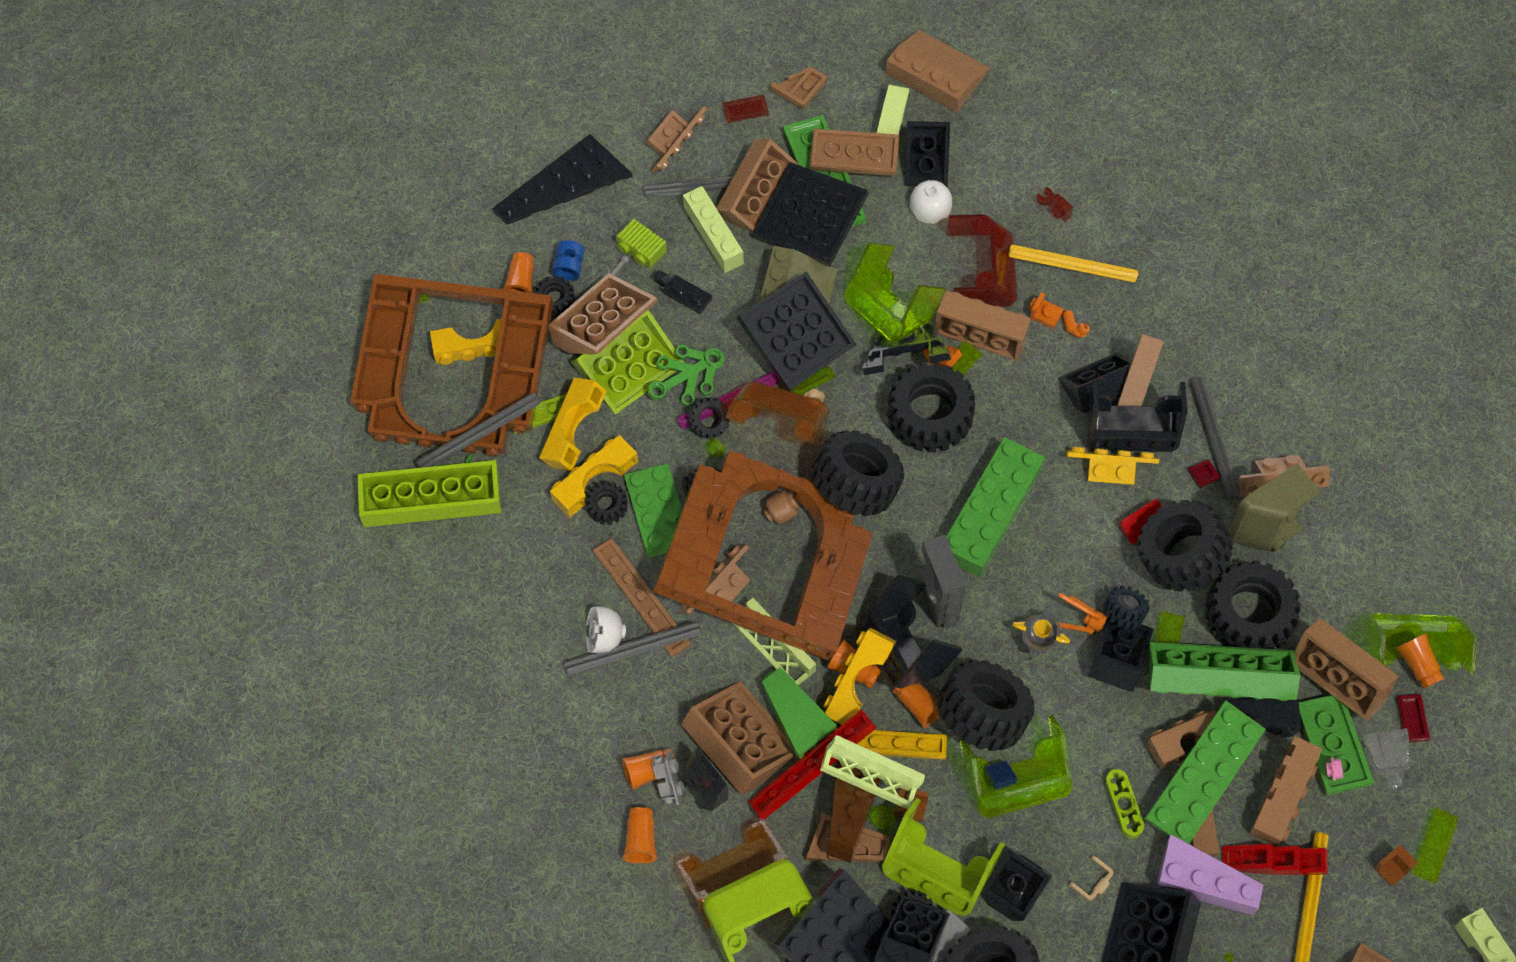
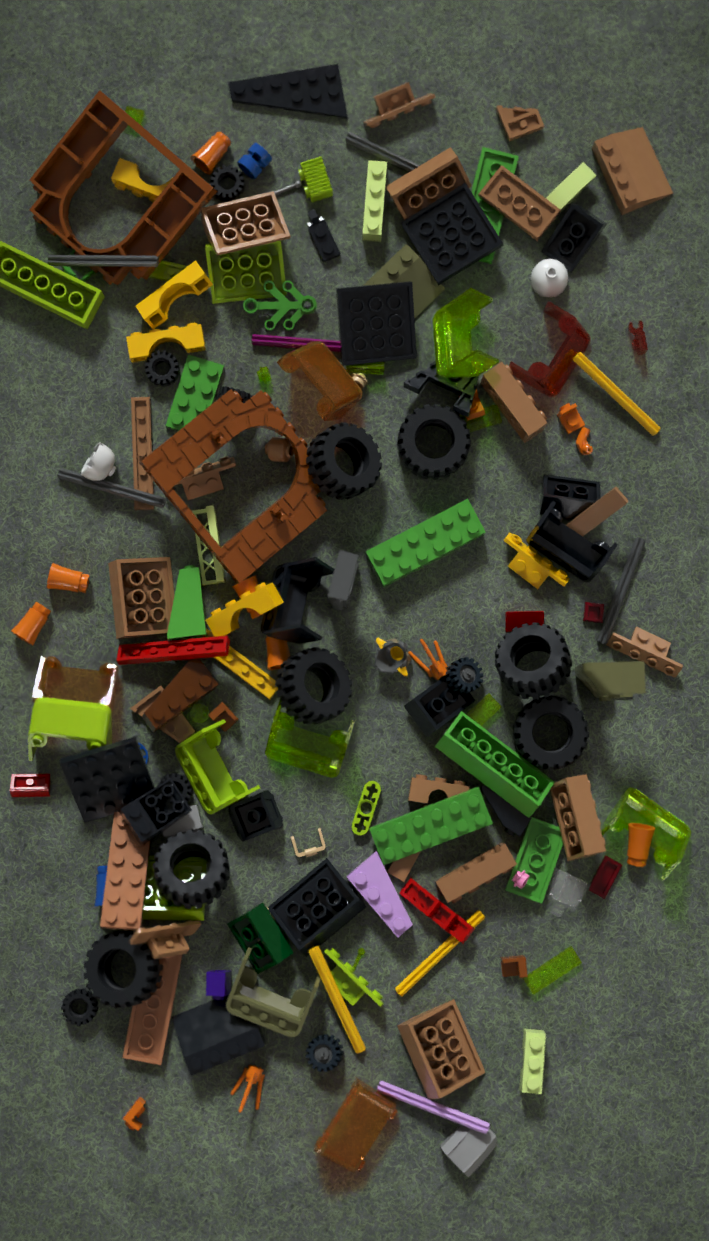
camera: 30 degrees right, 20 degrees up
(668, 769) = (73, 603): light grey hinge -> none
(695, 422) = (269, 338): black tyre -> none
(704, 782) = (96, 614): black slope -> none
(745, 108) = (466, 113): clear red tile -> none
(892, 773) = (210, 681): yellowish green fence -> none
(1000, 775) = (295, 736): dark blue tile -> none

